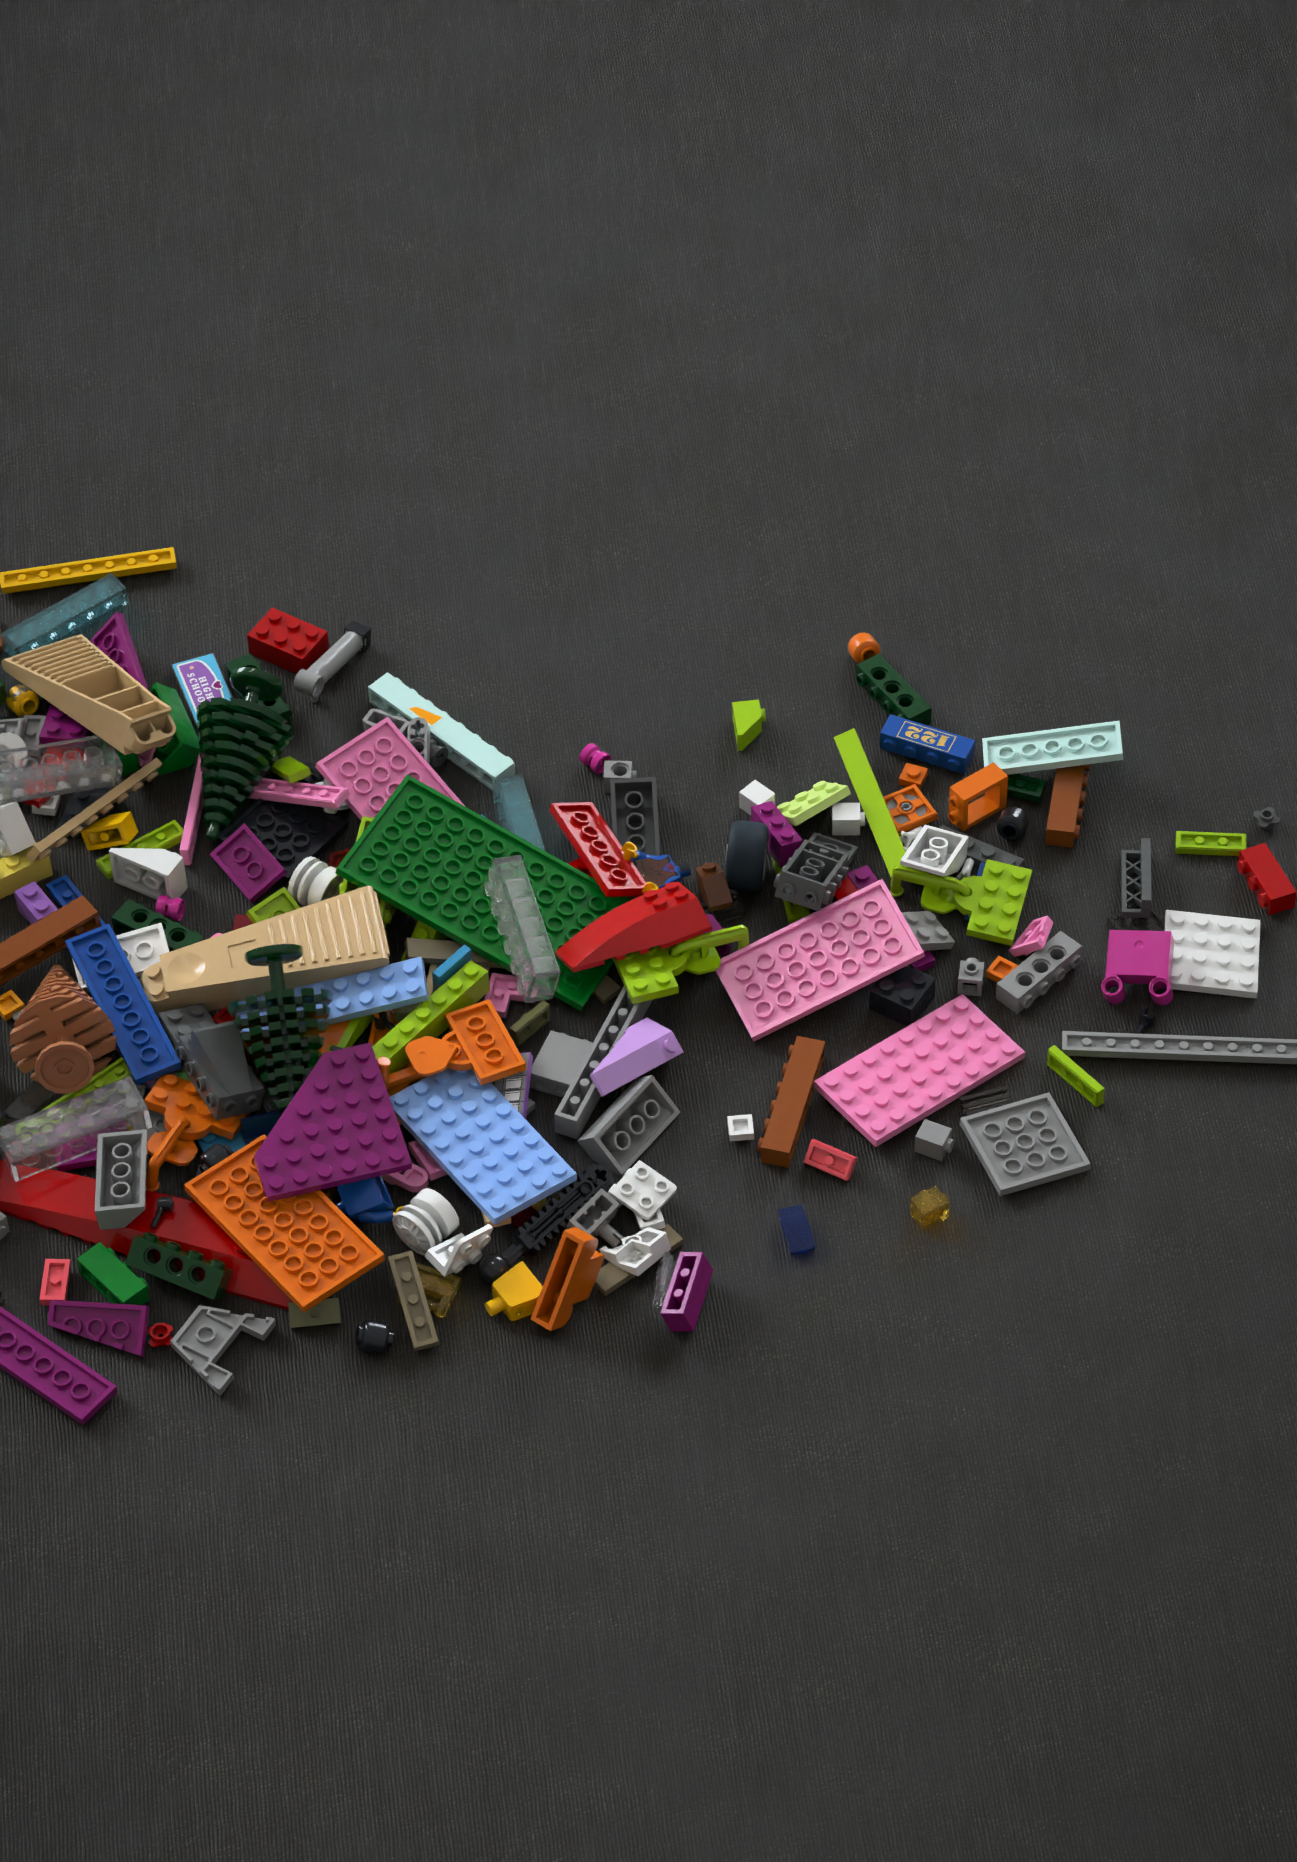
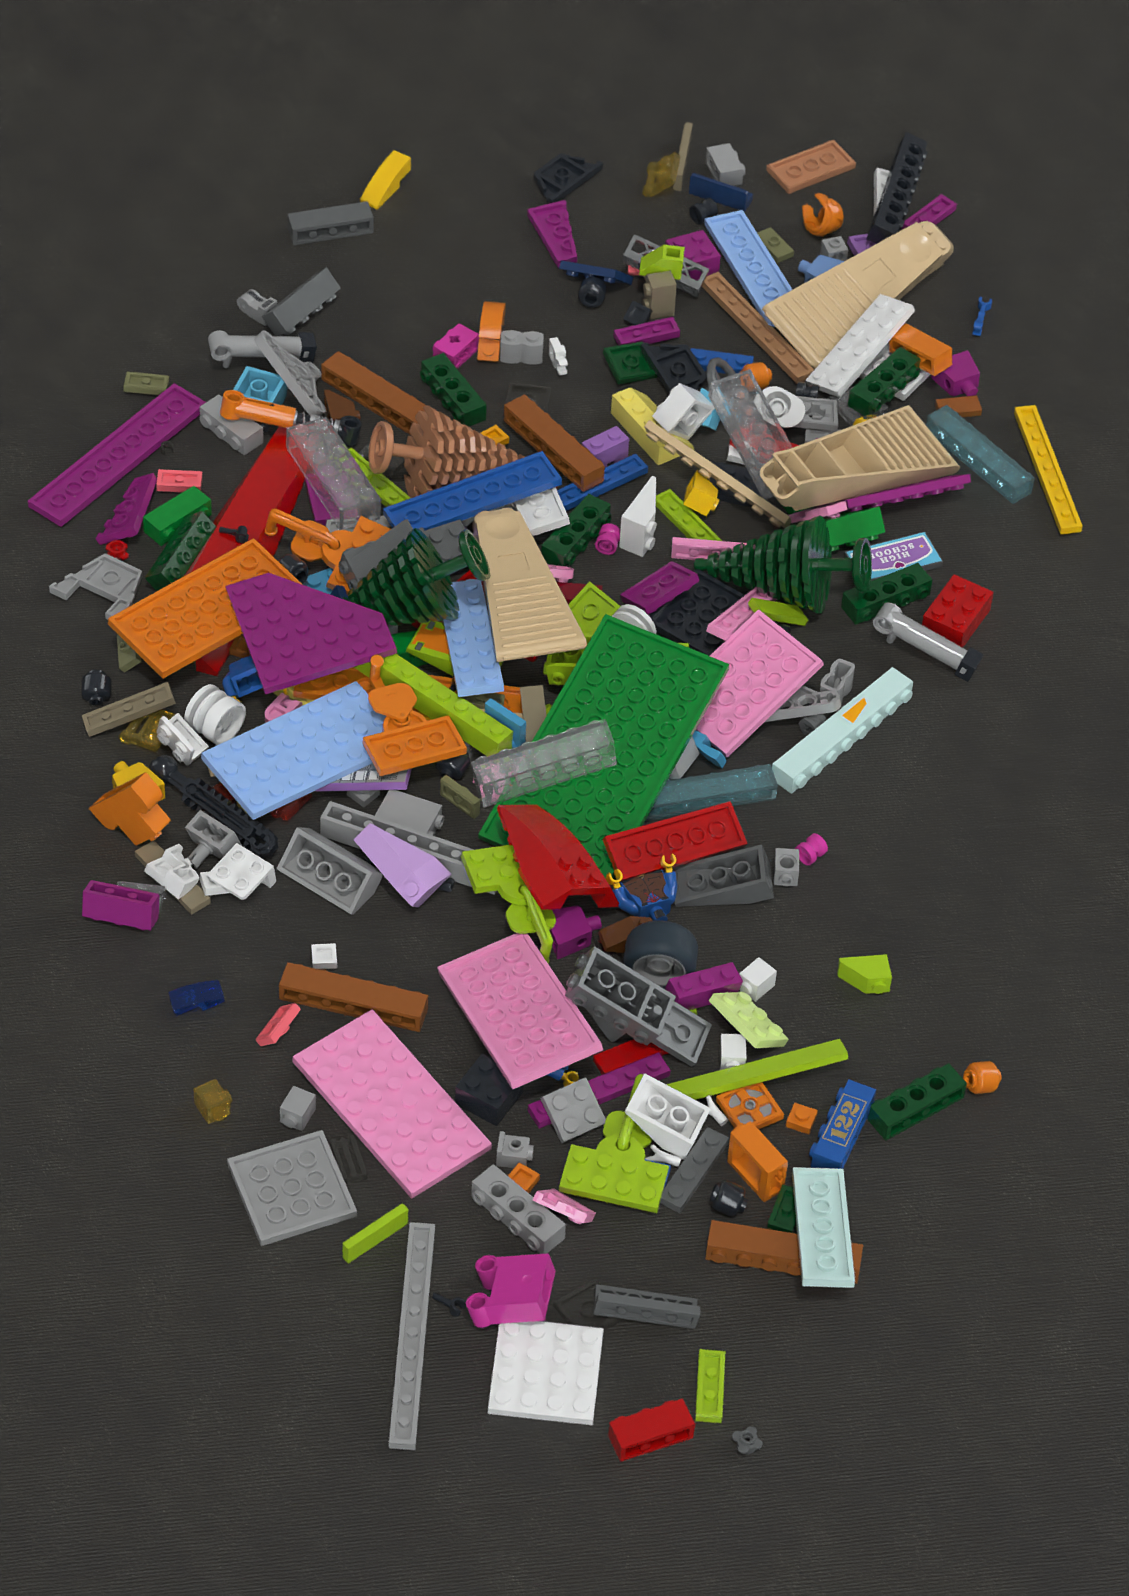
camera: 85 degrees right, 0 degrees up
(120, 1177) = (265, 494): light grey slope -> none

